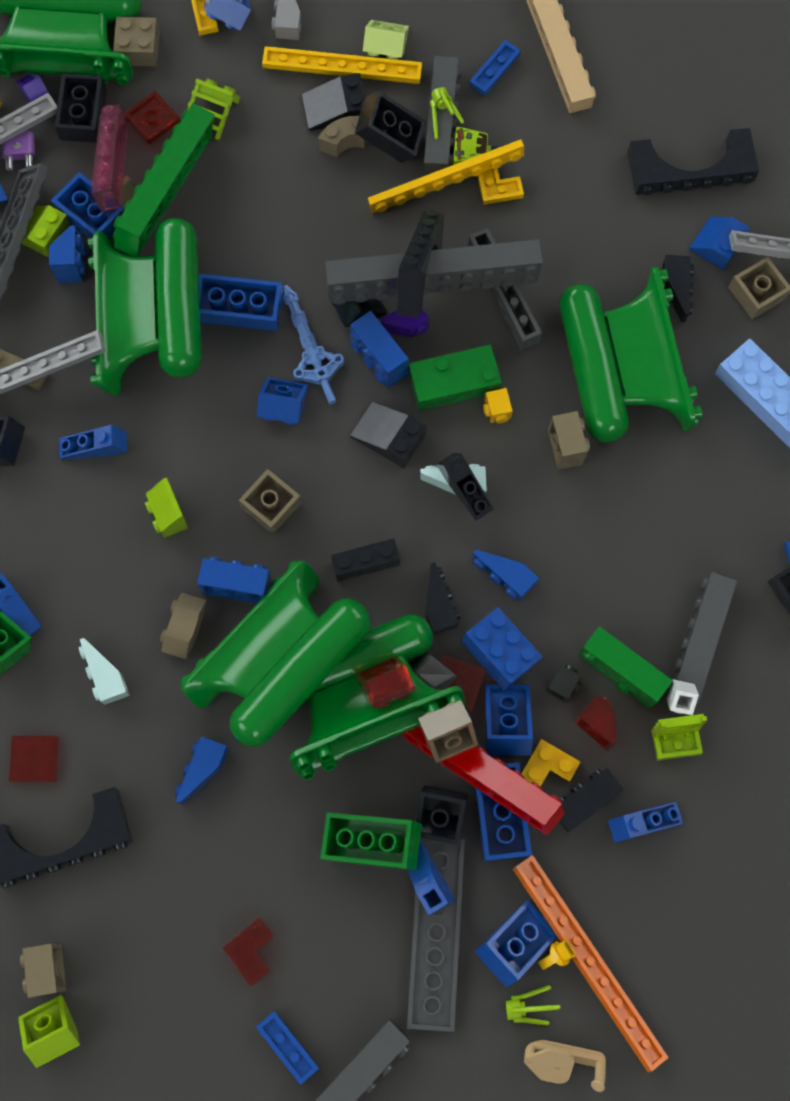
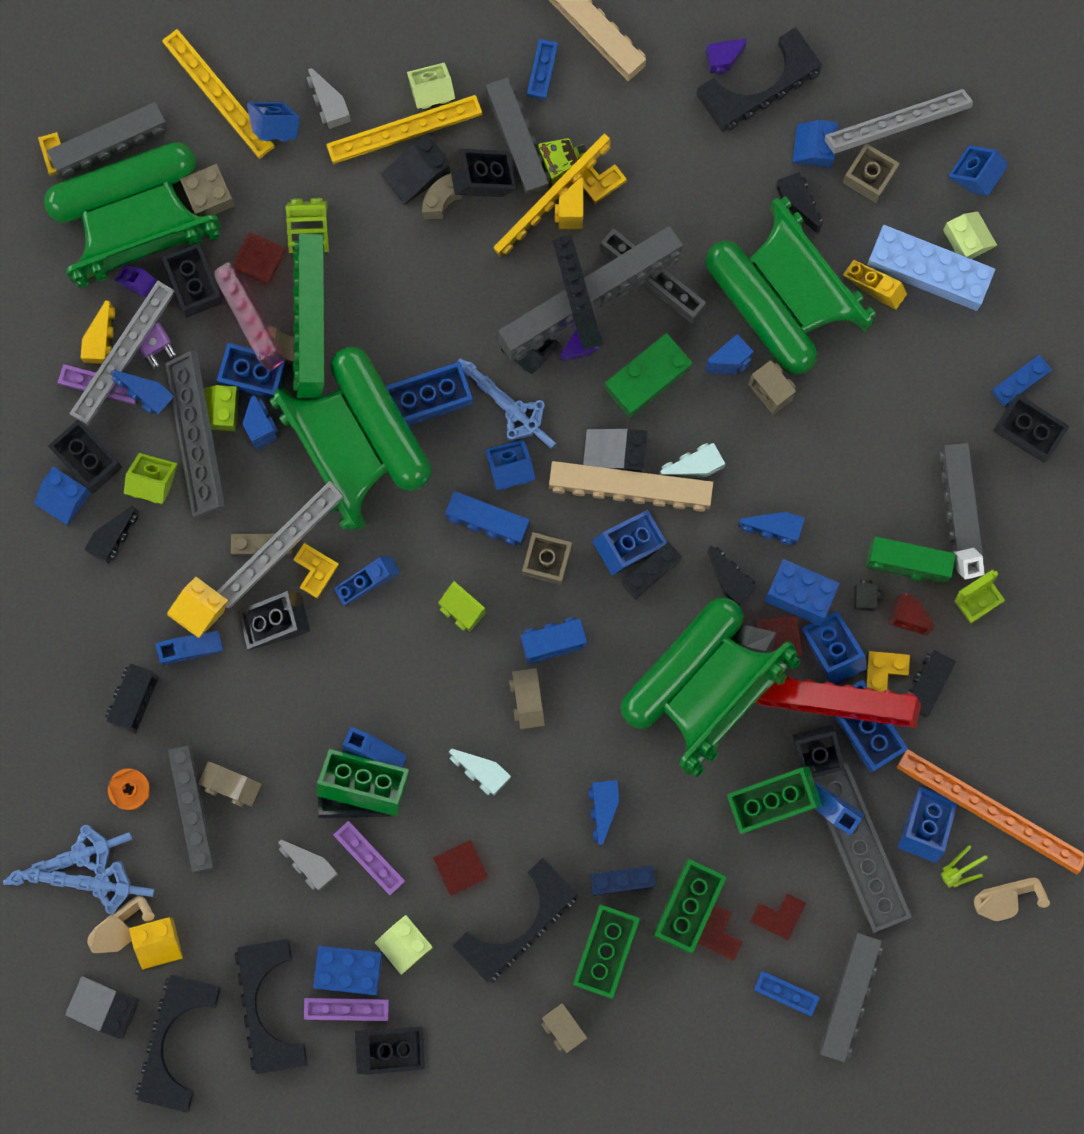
camera: 25 degrees left, 5 degrees up
(48, 1031) = (590, 1074): lime slope -> none
(55, 415) = (320, 569): none -> yellow plate
(128, 913) = (606, 951): none -> green brick
(181, 848) = (622, 880): none -> dark blue brick
(232, 908) = (689, 906): none -> green brick
(234, 439) = (487, 518): none -> blue brick
(277, 655) = (625, 686): green piece -> none
(320, 970) = (780, 922): none -> clear red plate
(357, 523) = (629, 542): none -> blue slope
(378, 350) = (572, 382): blue brick -> none
(385, 682) = (725, 666): clear red slope -> none
(386, 471) = (630, 485): none -> tan brick
(442, 101) = (515, 126): lime plant -> none
(448, 731) = (796, 682): dark tan brick -> none
(458, 193) = (570, 207): none -> yellow slope
(465, 485) = (705, 467): black slope -> none
(497, 406) = (697, 383): yellow brick -> none
(540, 395) = (731, 358): none -> blue slope
(559, 953) = (966, 816): yellow piece -> none
(645, 822) = (984, 679): blue slope -> none
(671, 126) = (724, 54): none -> dark purple slope
(717, 393) = (876, 284): none -> yellow slope

